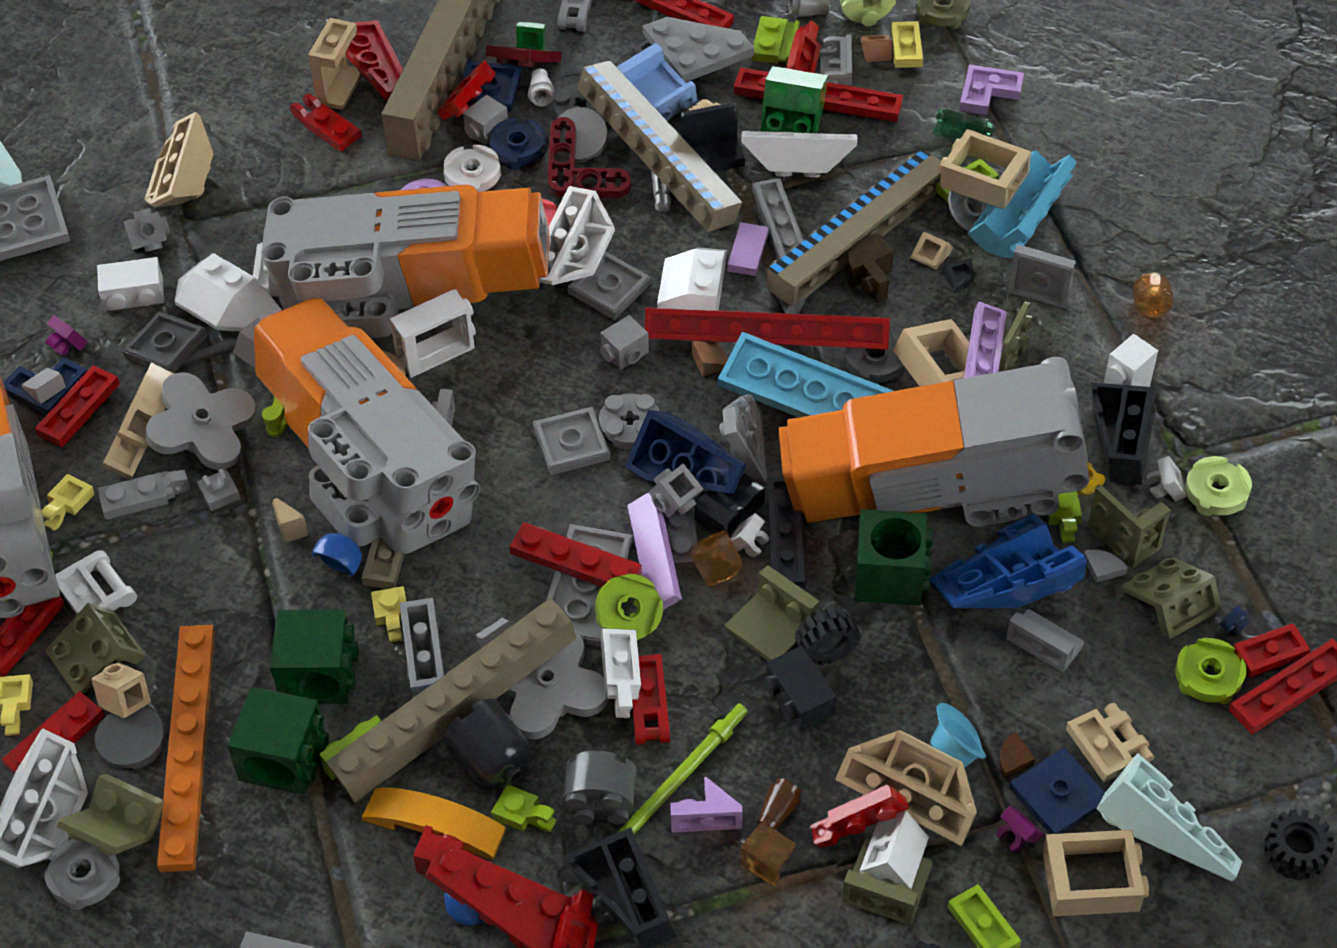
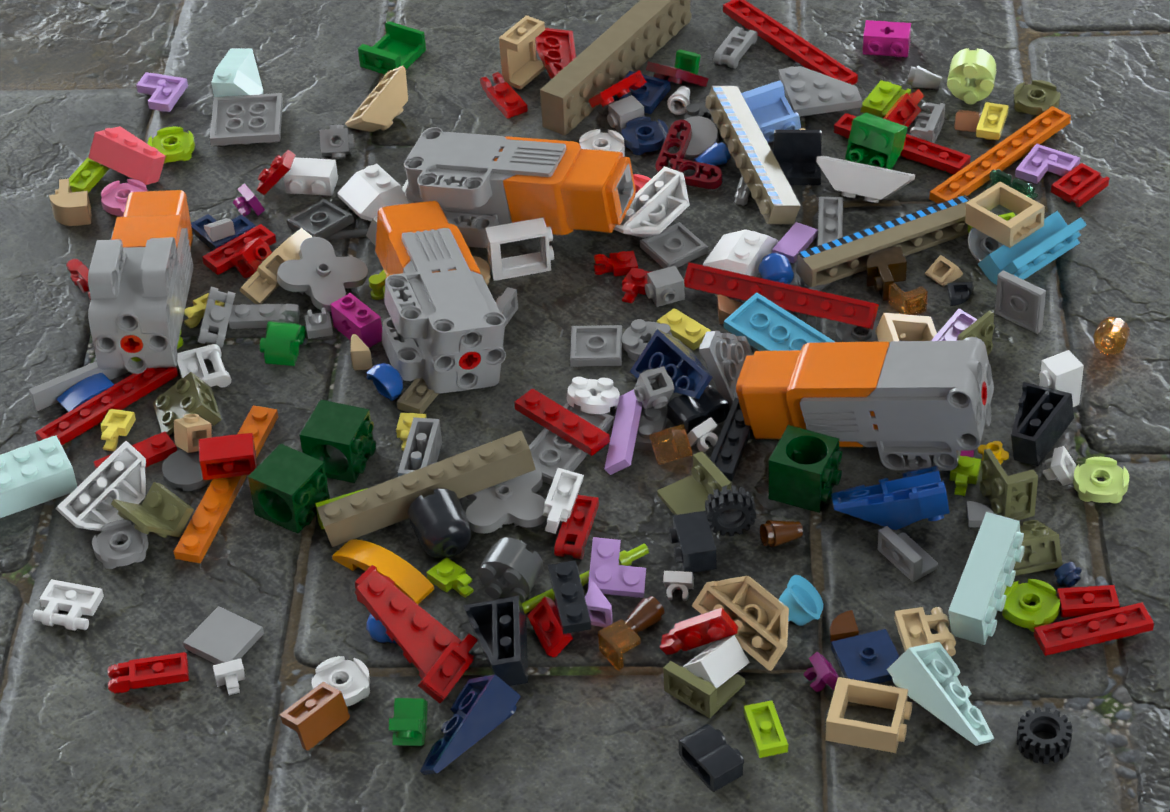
camera: 20 degrees right, 10 degrees down
(86, 290) = (278, 169): none -> red plate
(86, 512) = (216, 317): none -> light grey plate
(101, 416) = (251, 257): none -> red brick
(167, 87) = (395, 49): none -> green panel
(183, 527) = (282, 342): none -> green cylinder
(183, 715) = (227, 456): none -> red brick
(267, 475) = (354, 317): none -> dark pink brick
(554, 322) = (618, 263): none -> red plate
(584, 507) = (593, 395): none -> white plate
(585, 344) = (634, 284): none -> red plate
(611, 153) = (714, 155): none -> blue cone
(644, 597) = (600, 453): lime plate -> none
(668, 393) = (684, 328): none -> light yellow plate
(674, 851) = (548, 627): none -> red plate
(689, 809) = (569, 597): none -> black plate
(713, 757) = (610, 576): none -> lavender plate
(745, 293) = (776, 268): none -> blue head
(802, 746) = (678, 580): none -> white tile
(890, 647) = (779, 532): none -> reddish brown cone
(909, 302) = (908, 302): none -> clear orange panel
(934, 90) = (1001, 155): none -> orange plate
(1036, 107) = (1079, 185): none -> red plate
(1166, 659) = (986, 578): none -> light aqua brick

